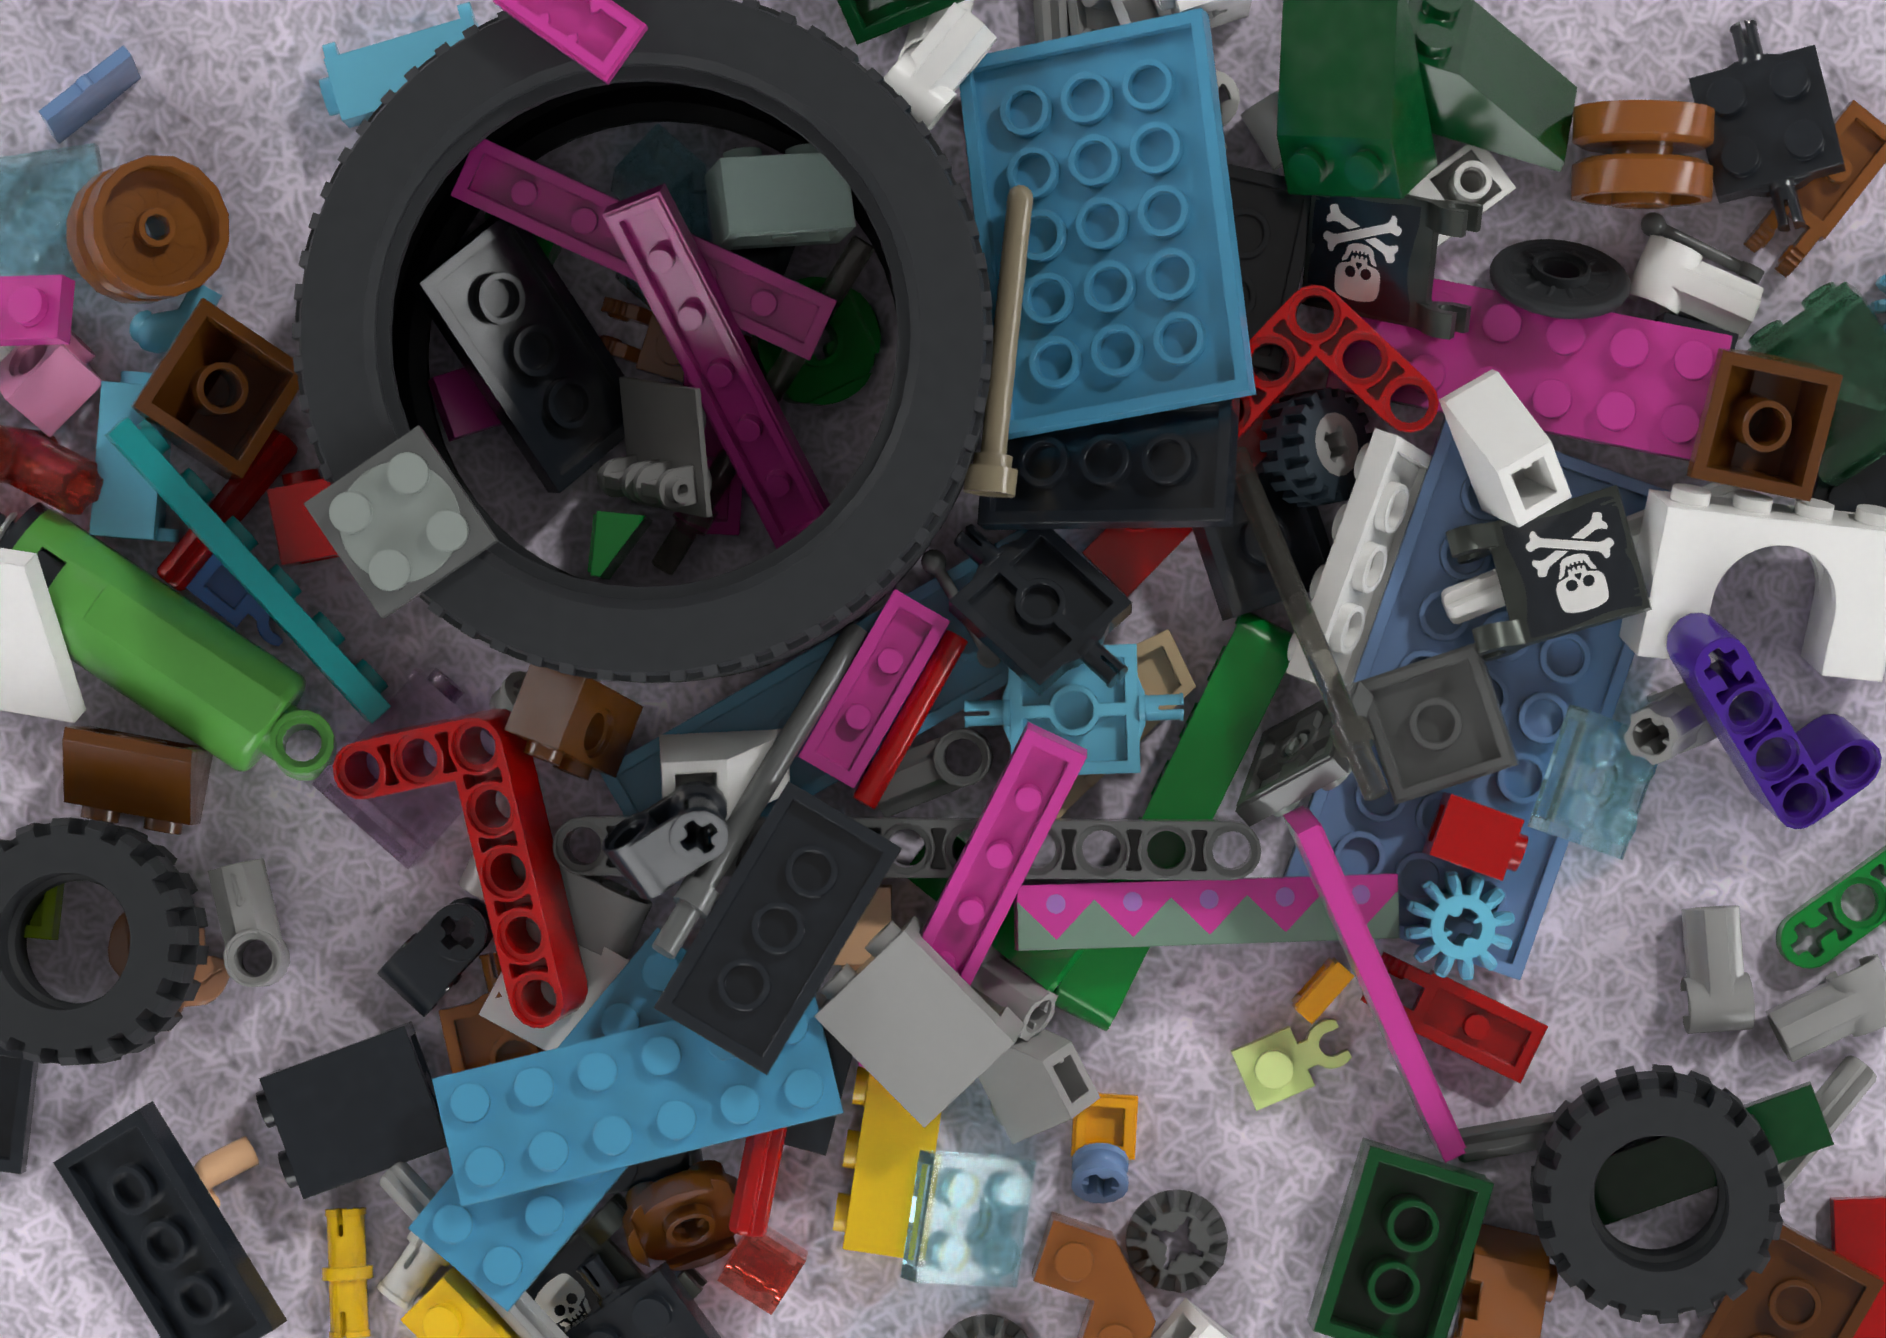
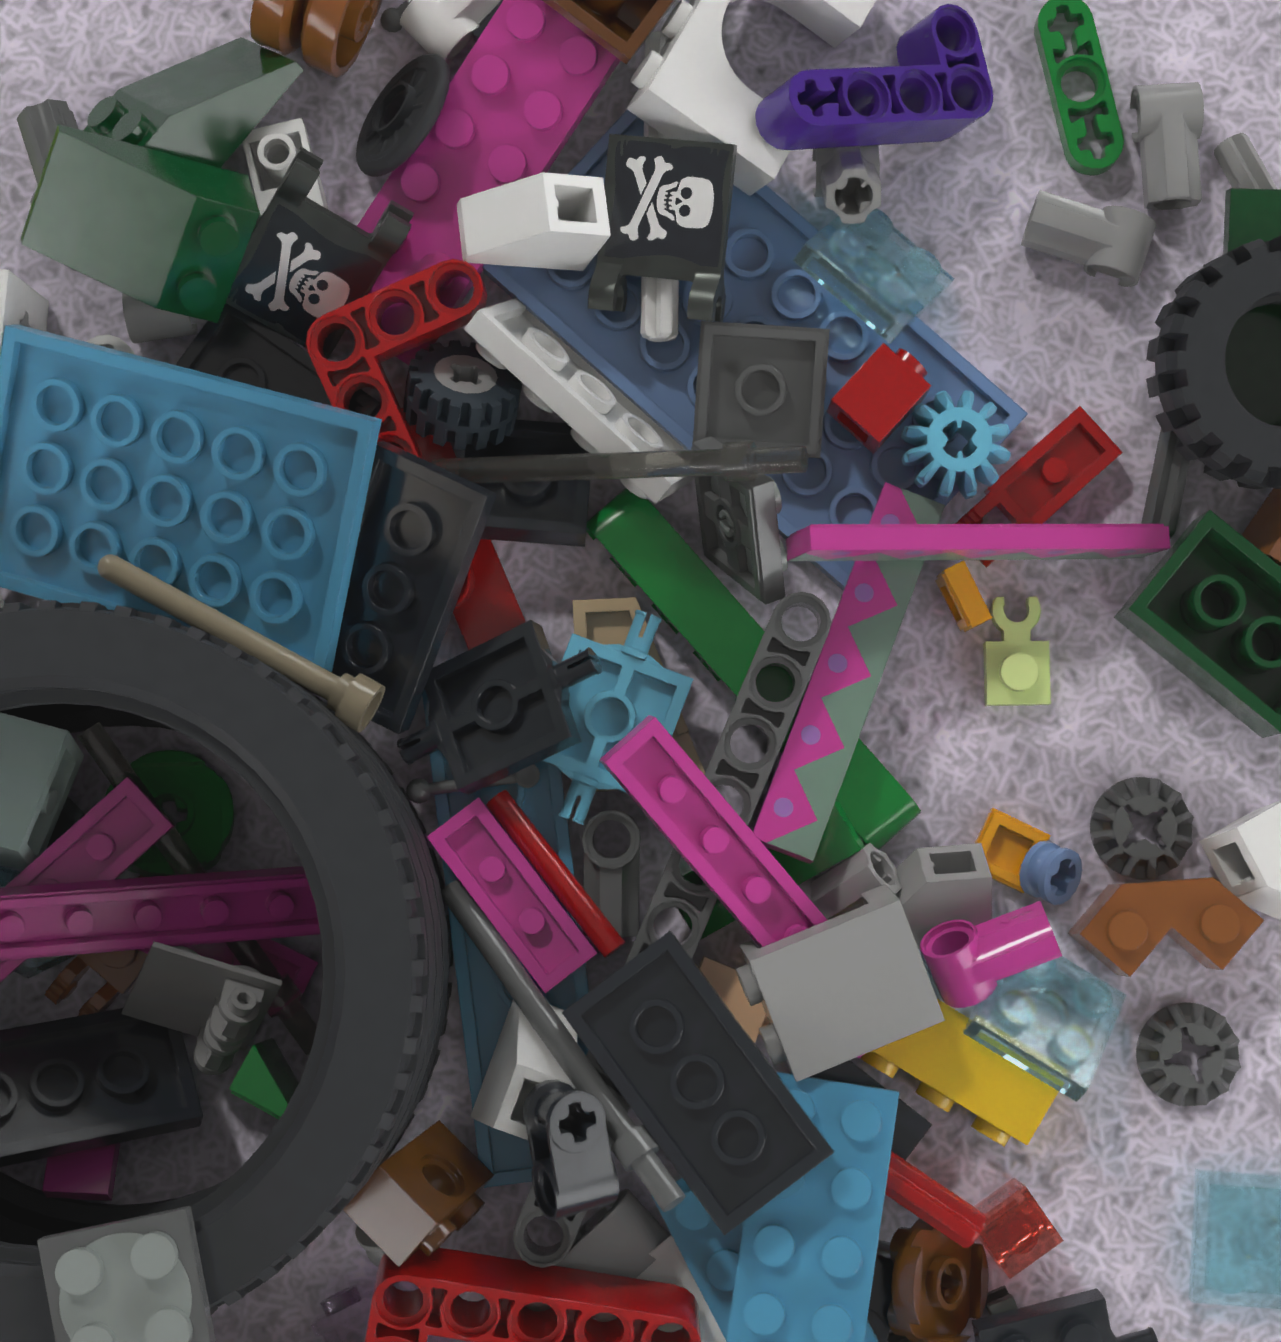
camera: 65 degrees left, 5 degrees down
(990, 1131) = (972, 958): none -> dark pink piece

